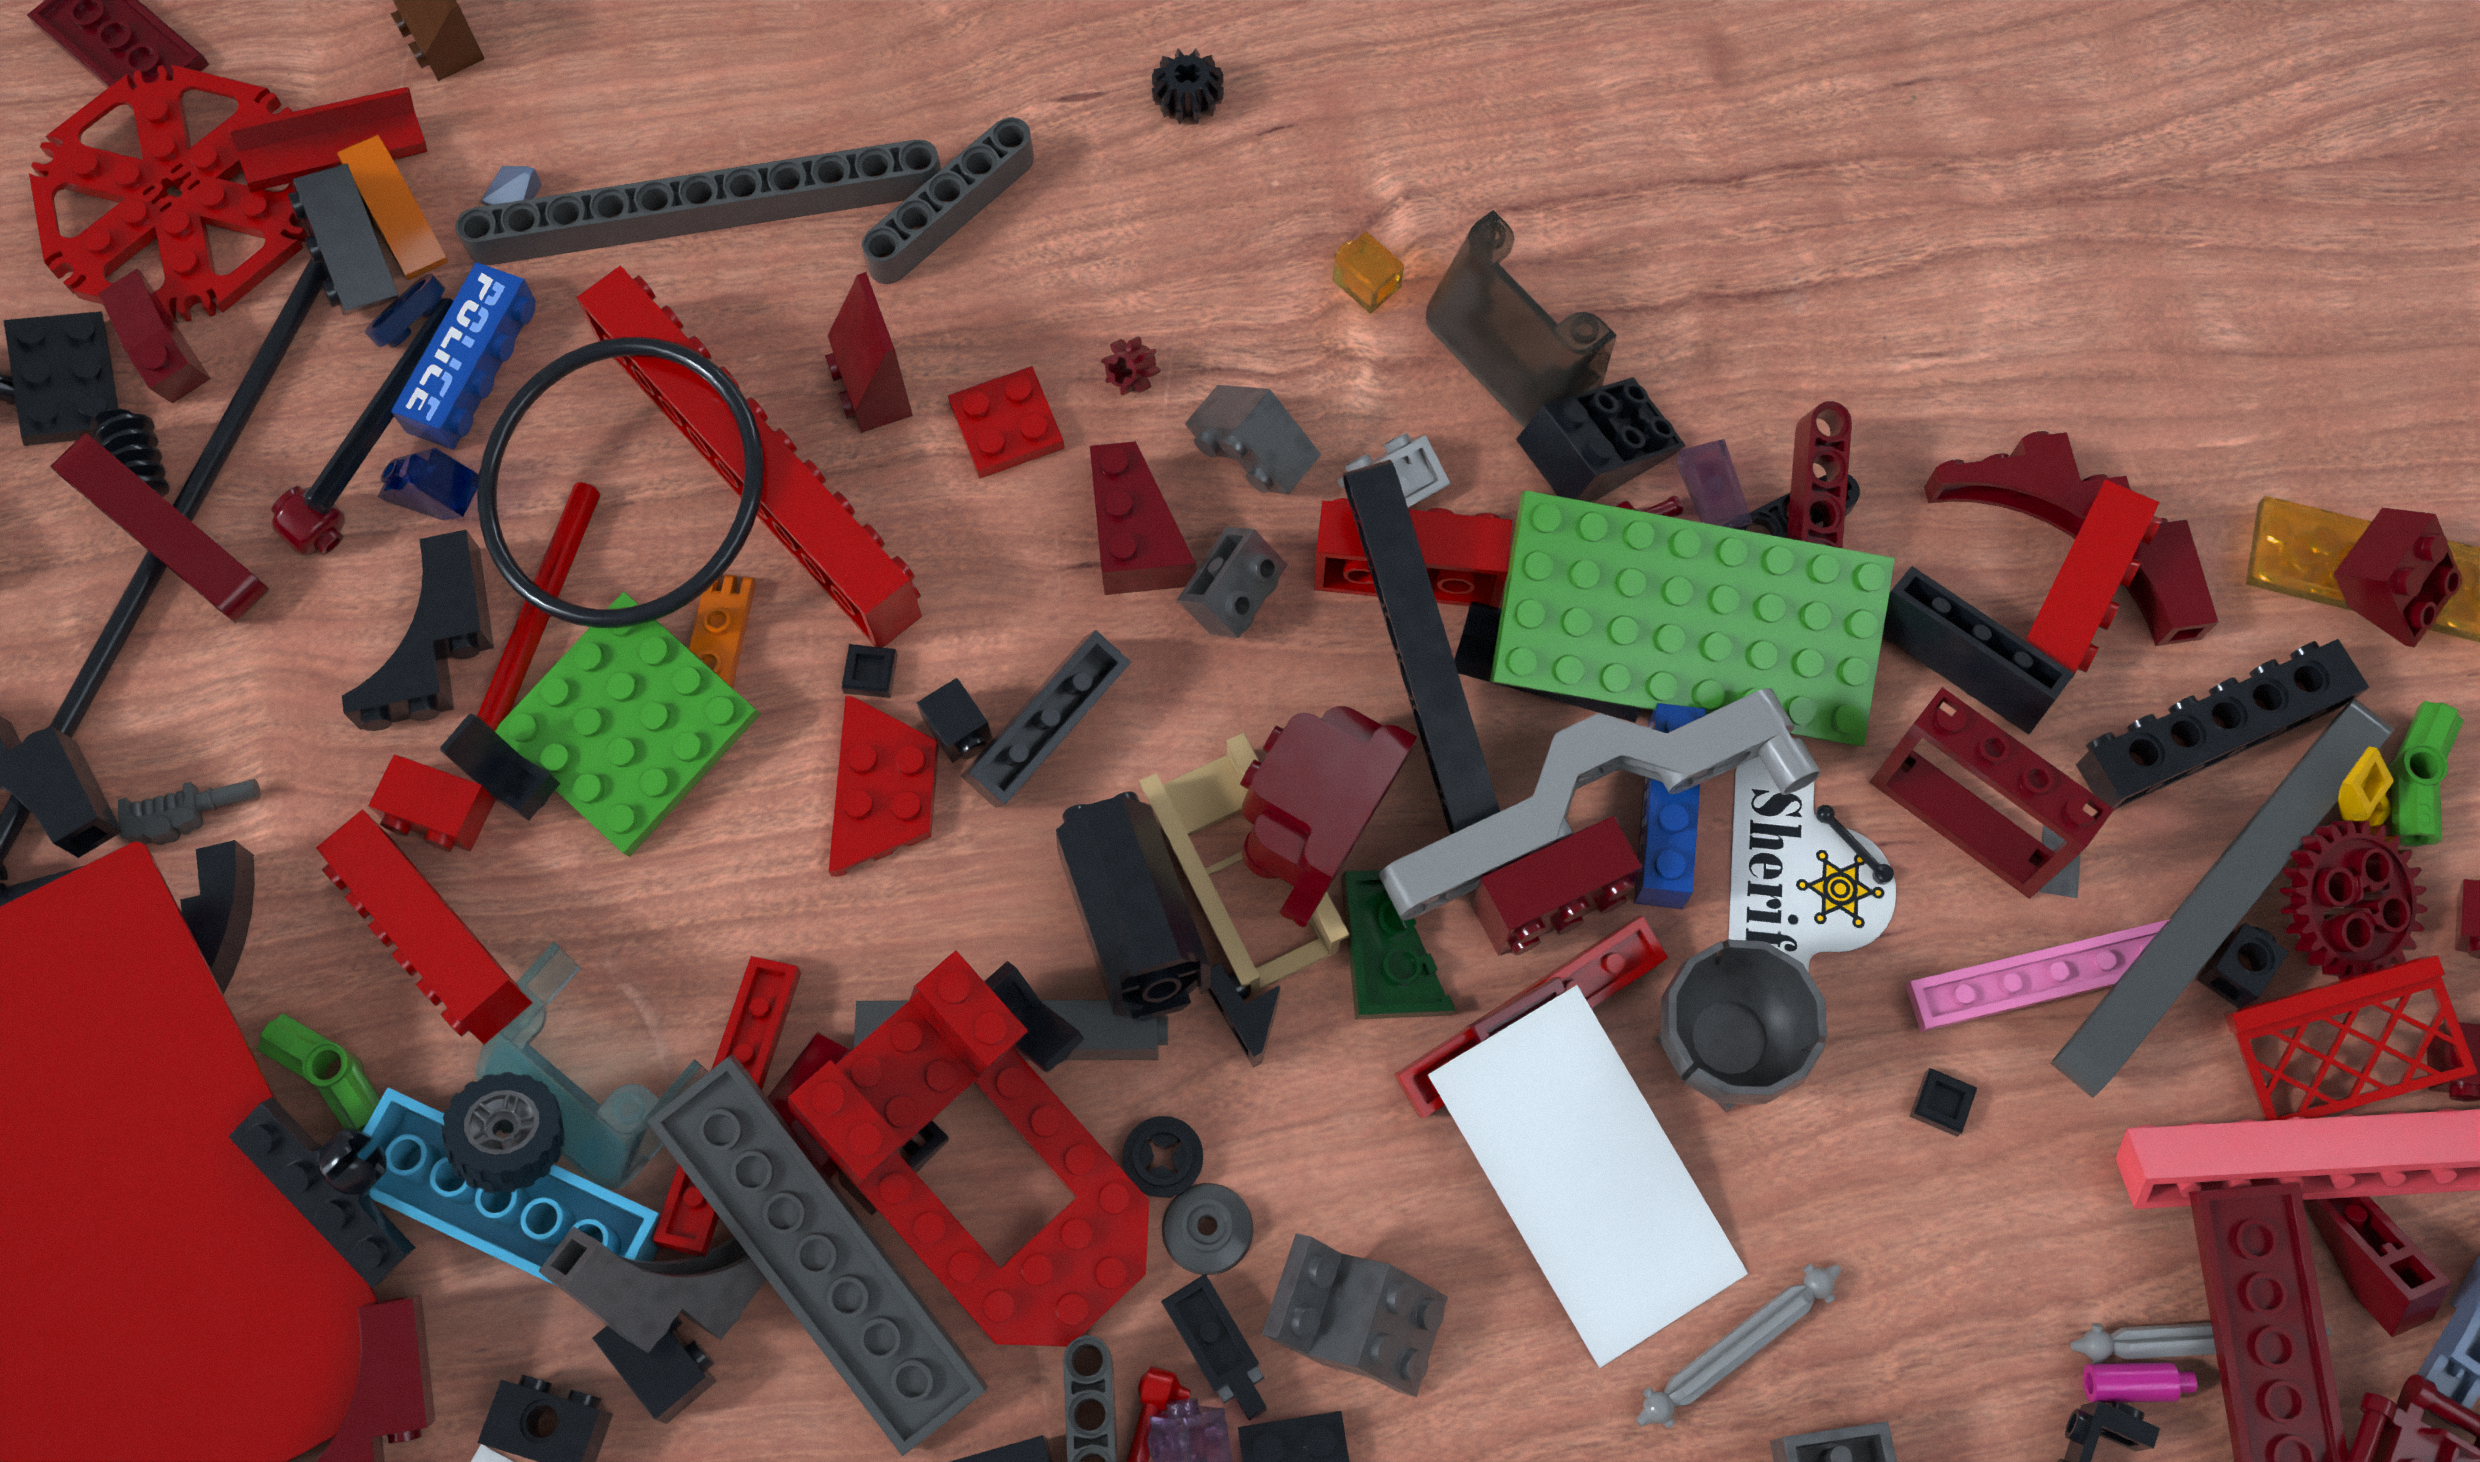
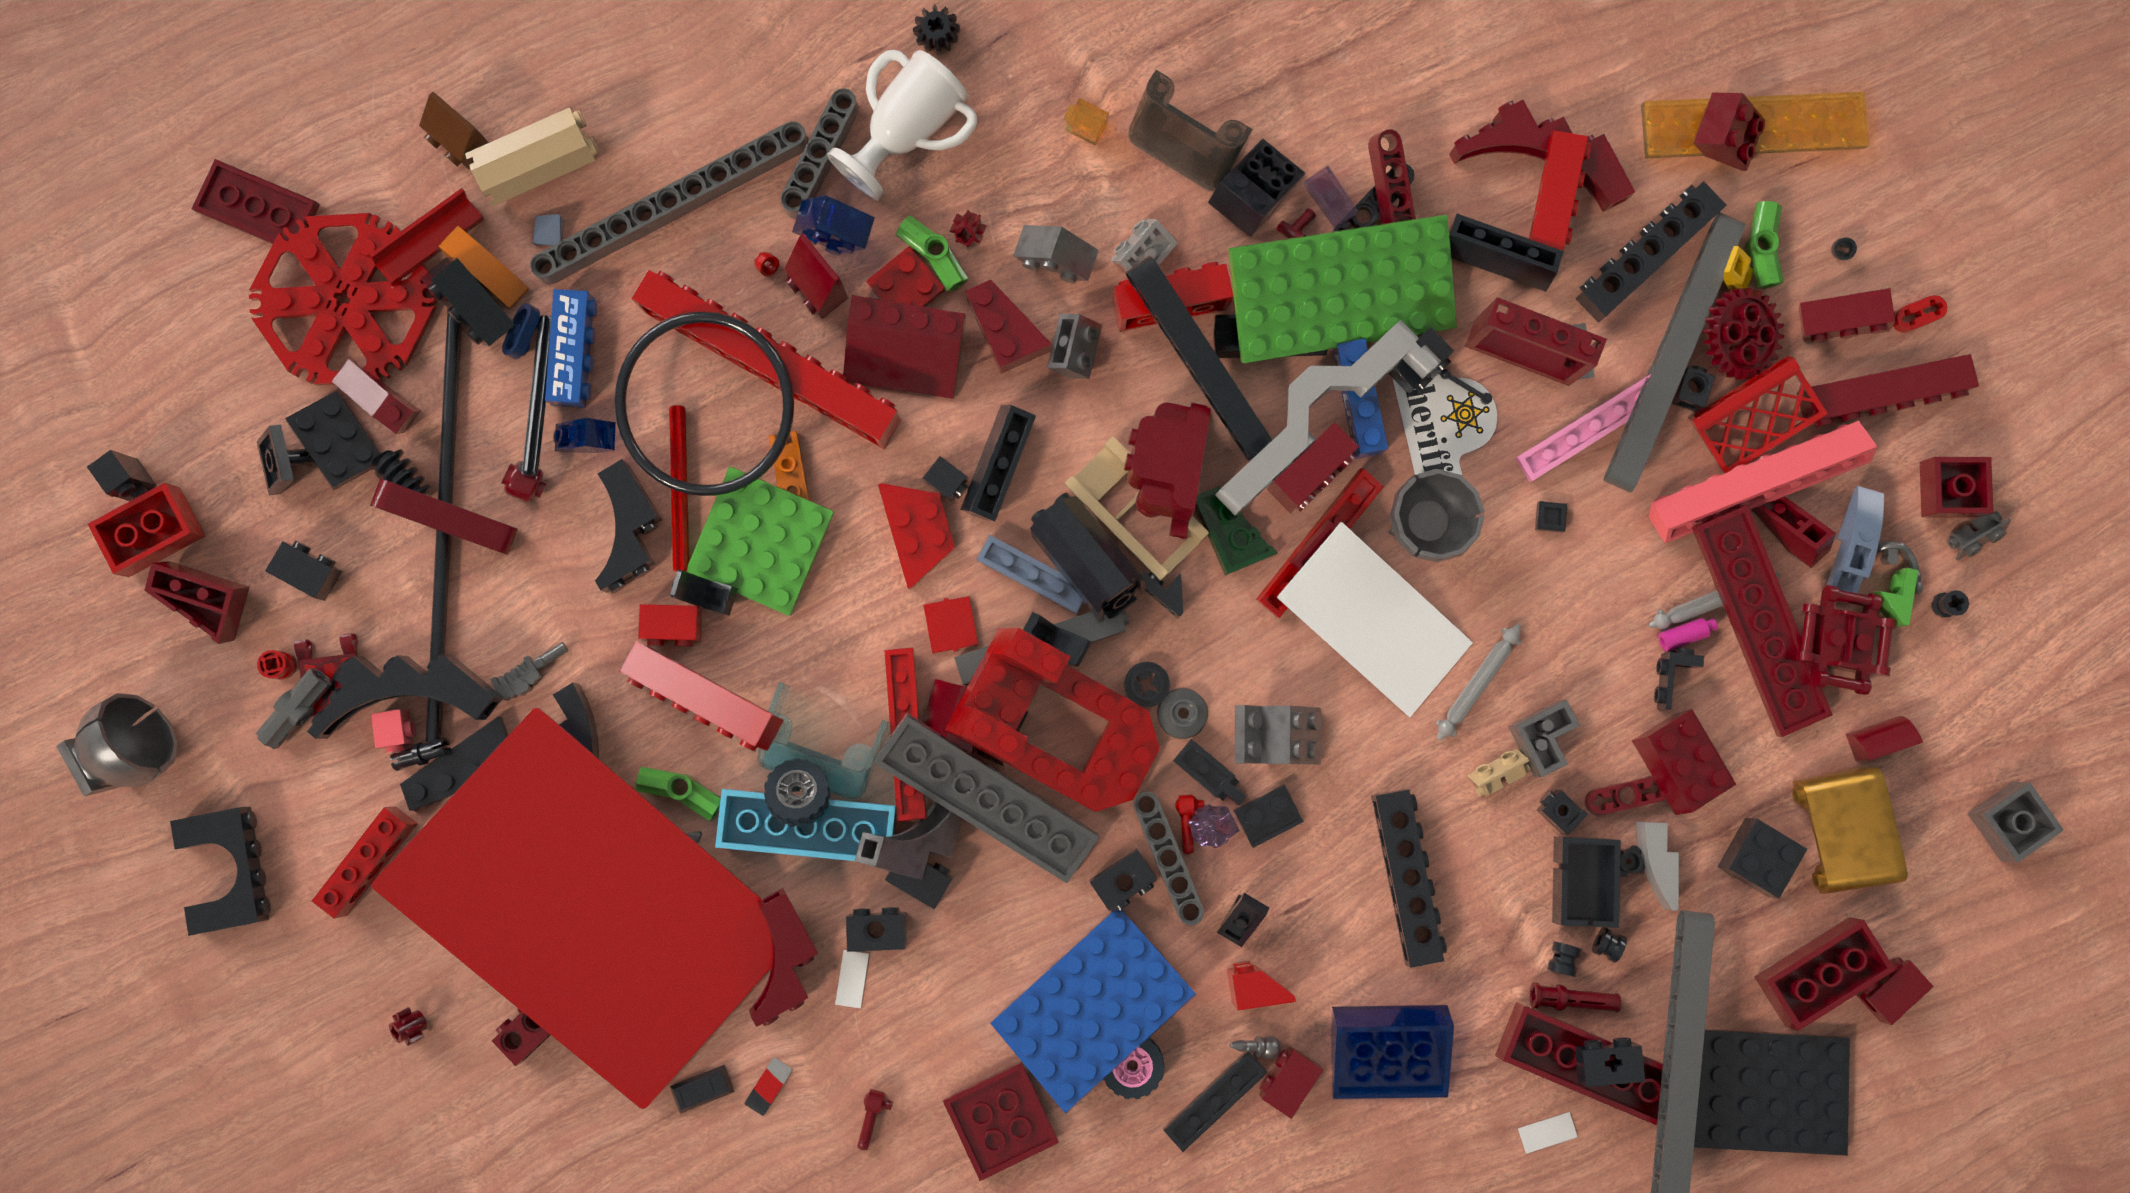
camera: 25 degrees left, 15 degrees up
(327, 1186) = (714, 852): black plate -> none
(528, 76) = (533, 155): none -> tan brick
(799, 333) = (771, 267): none -> red hinge
(869, 671) = (884, 464): black tile -> none
(876, 954) = (950, 624): none -> red piece
(926, 292) = (833, 225): none -> clear blue brick
(967, 501) = (903, 346): none -> dark red slope
(1033, 910) = (1029, 573): none -> sand blue plate
(1055, 365) = (921, 240): none -> bright green piece
(1093, 180) = (906, 116): none -> white piece
(1761, 796) = (1407, 377): none -> black brick

